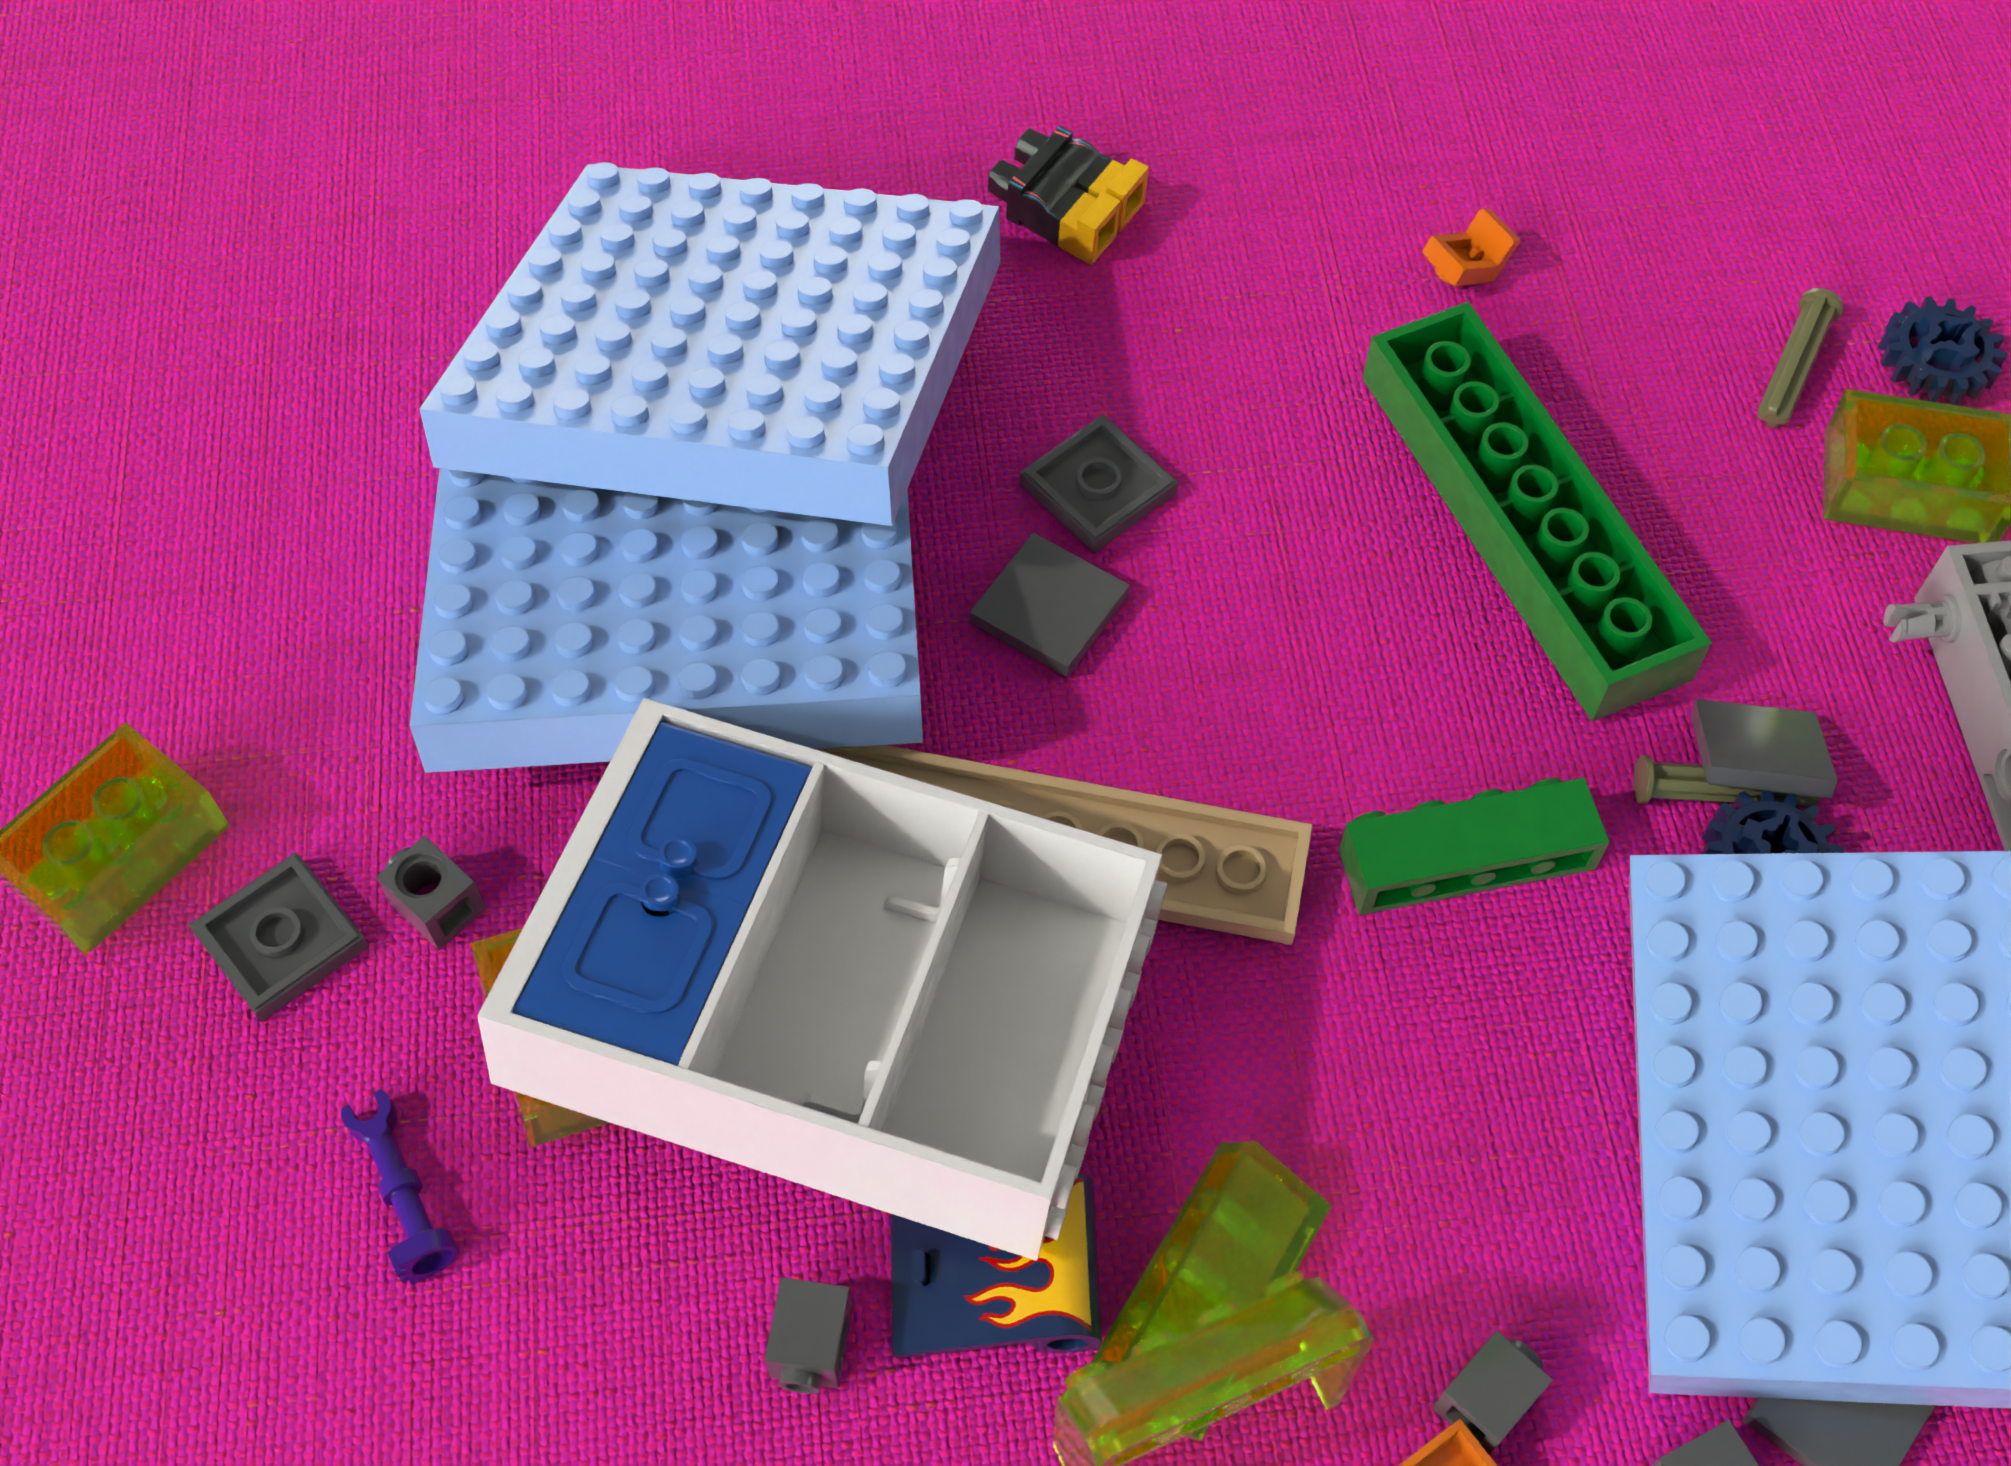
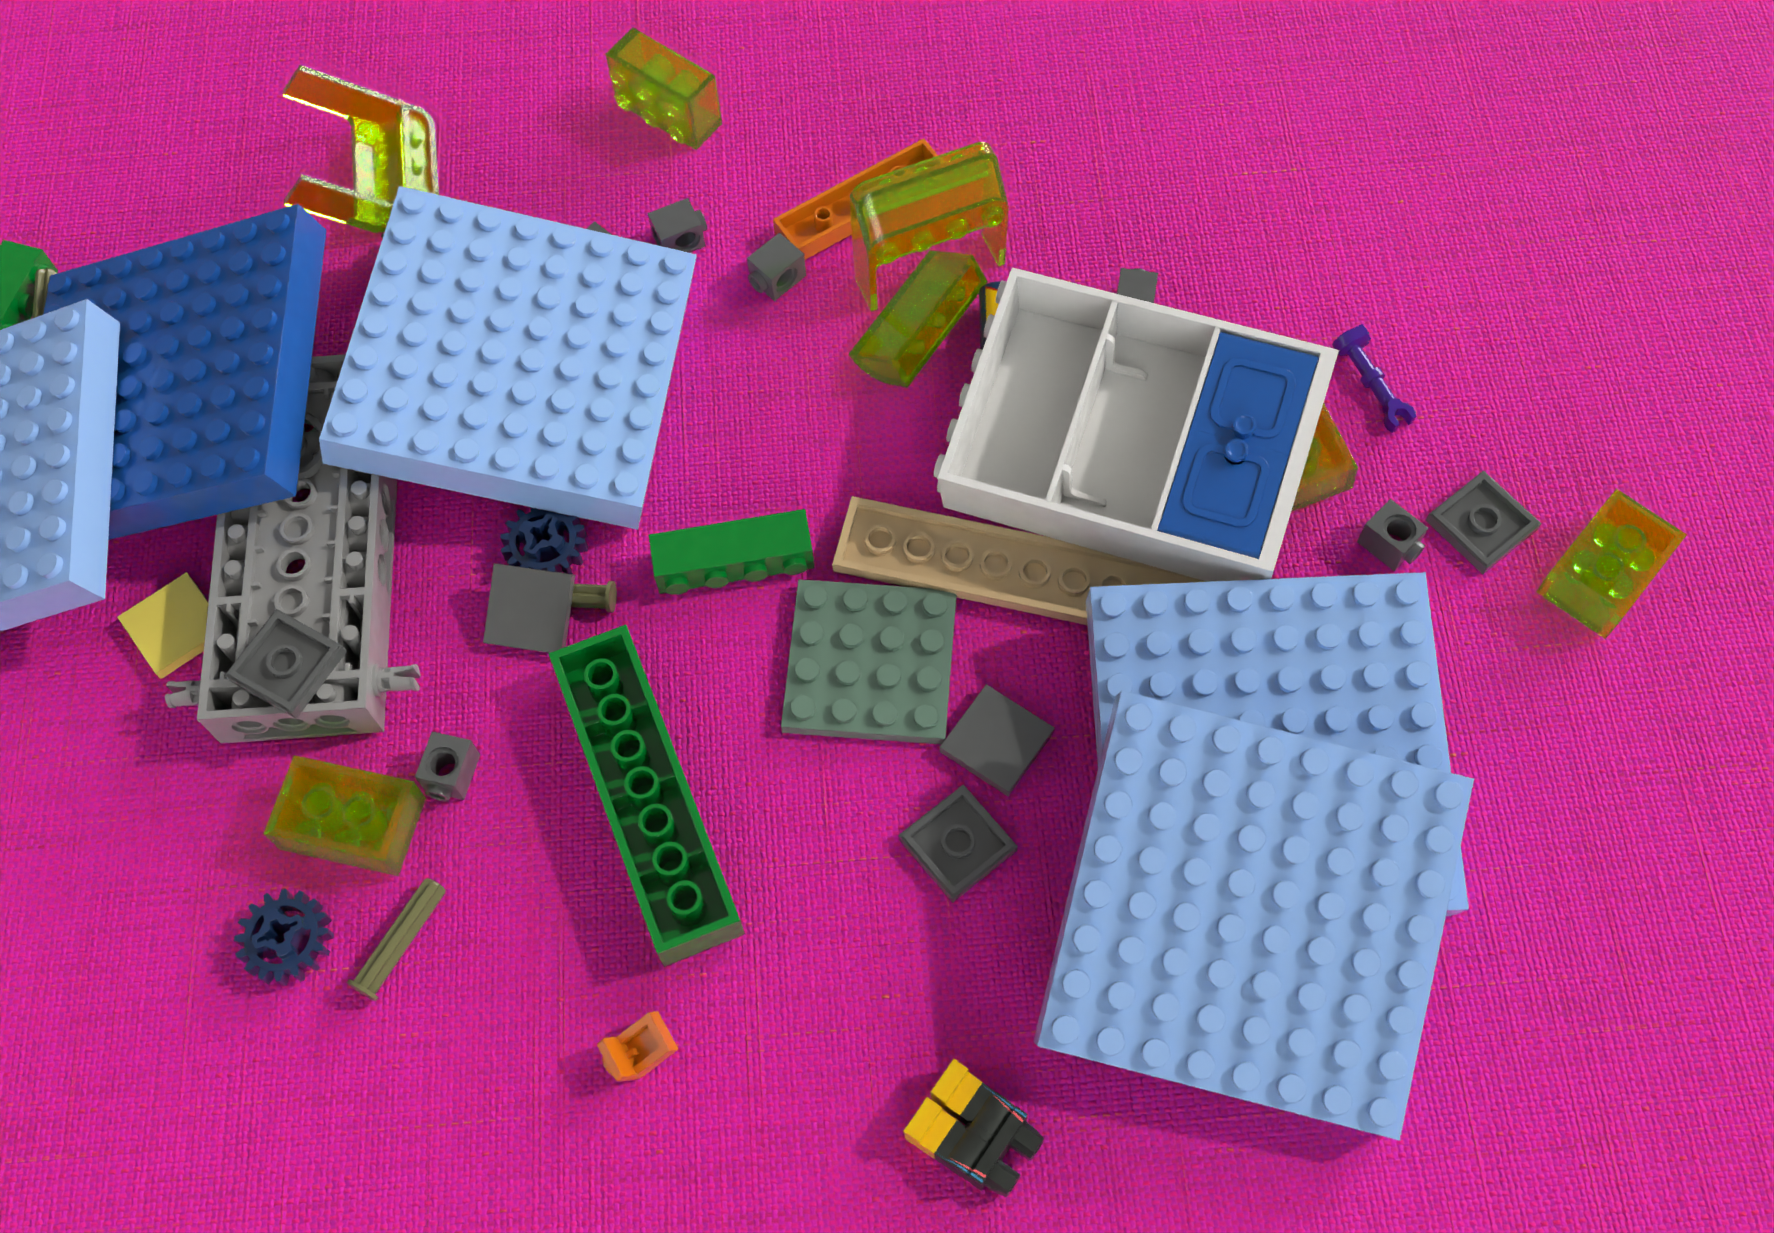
camera: 175 degrees left, 5 degrees up
(1241, 705) = (870, 662): none -> sand green plate
(1807, 542) = (446, 750): none -> dark grey brick

